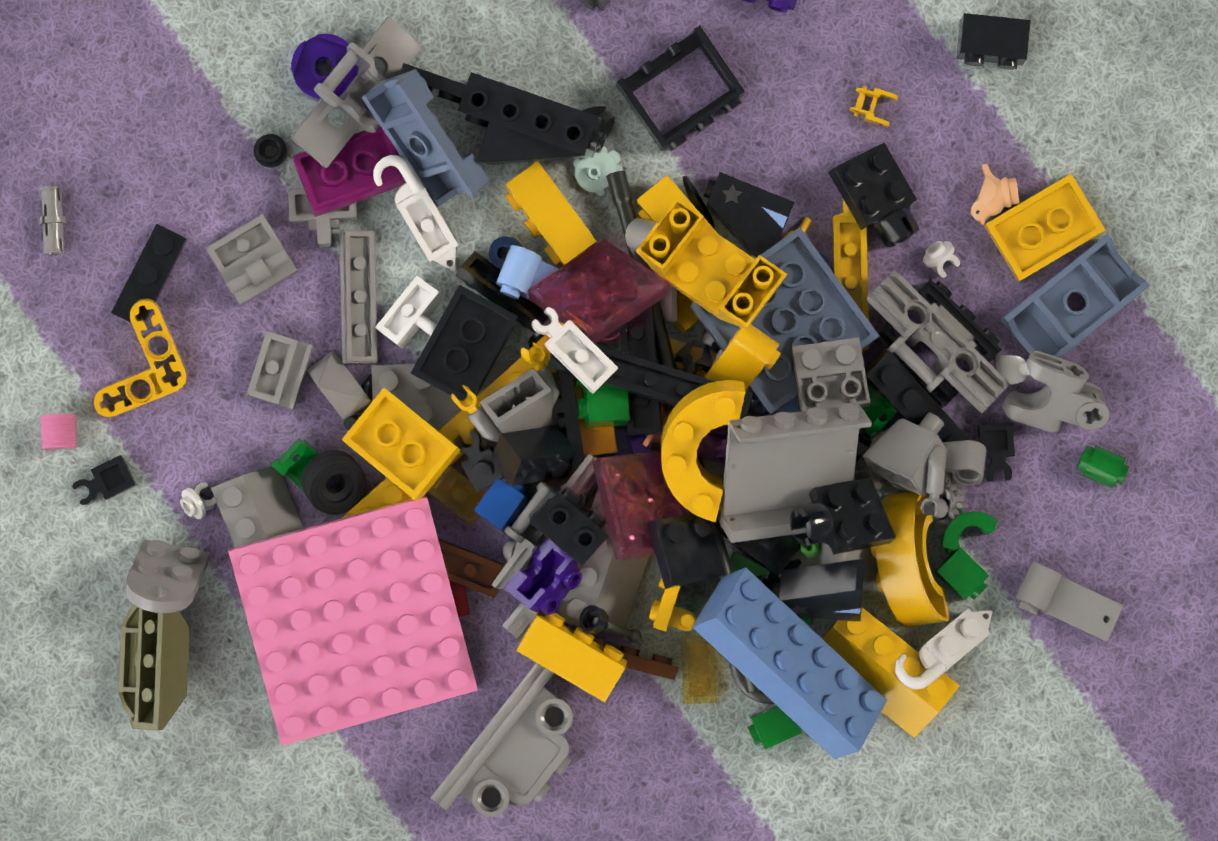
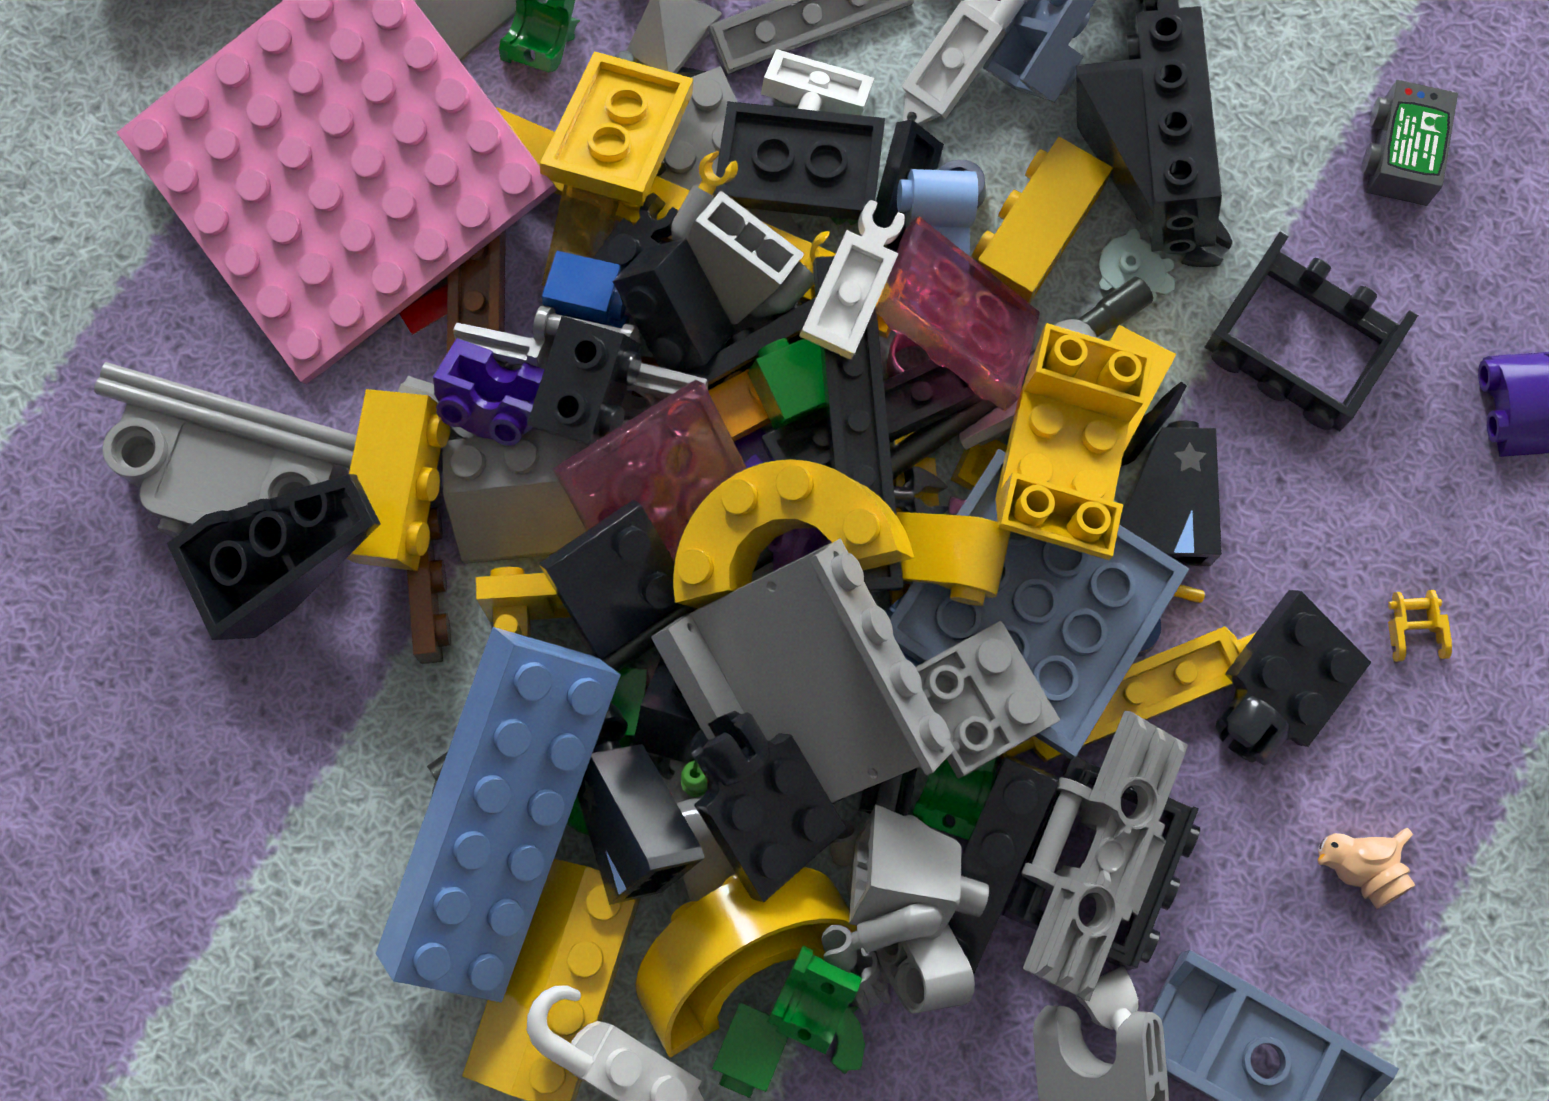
camera: 70 degrees right, 10 degrees down
(324, 467) = (501, 67): black tyre -> none
(588, 741) = (269, 556): none -> black wedge
(601, 623) = (457, 494): black hinge -> none
(698, 670) = (434, 696): clear yellow plate -> none
(772, 727) = (389, 834): green brick -> none
(938, 254) = (1239, 811): white plate -> none
(954, 531) = (813, 1000): none -> green piece
(999, 444) = (981, 1024): black plate -> none
(1044, 227) = (1358, 966): yellow plate -> none

